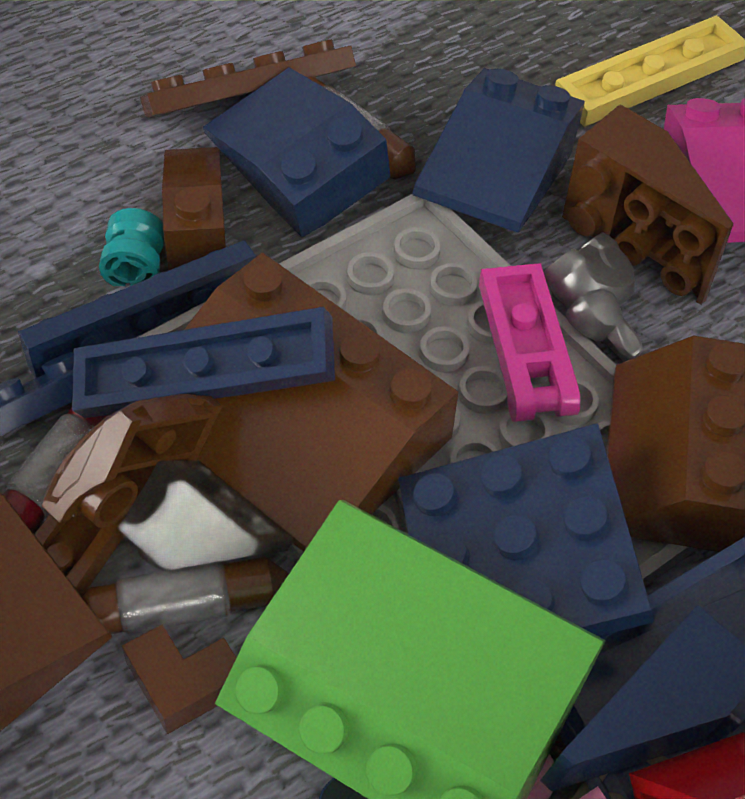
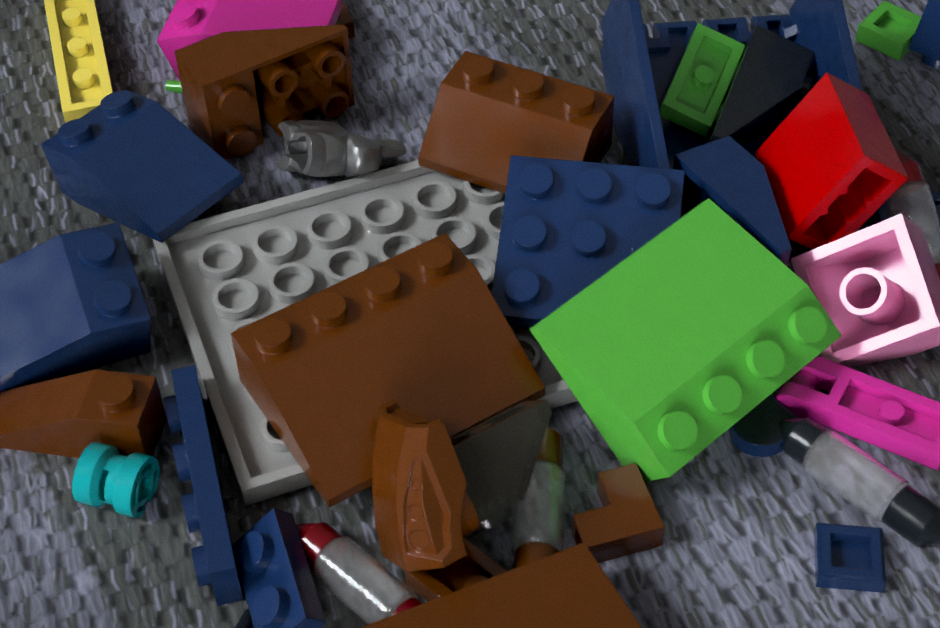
camera: 70 degrees left, 5 degrees down
(206, 361) = (344, 406): dark blue plate -> none
(528, 341) = (377, 199): dark pink plate -> none

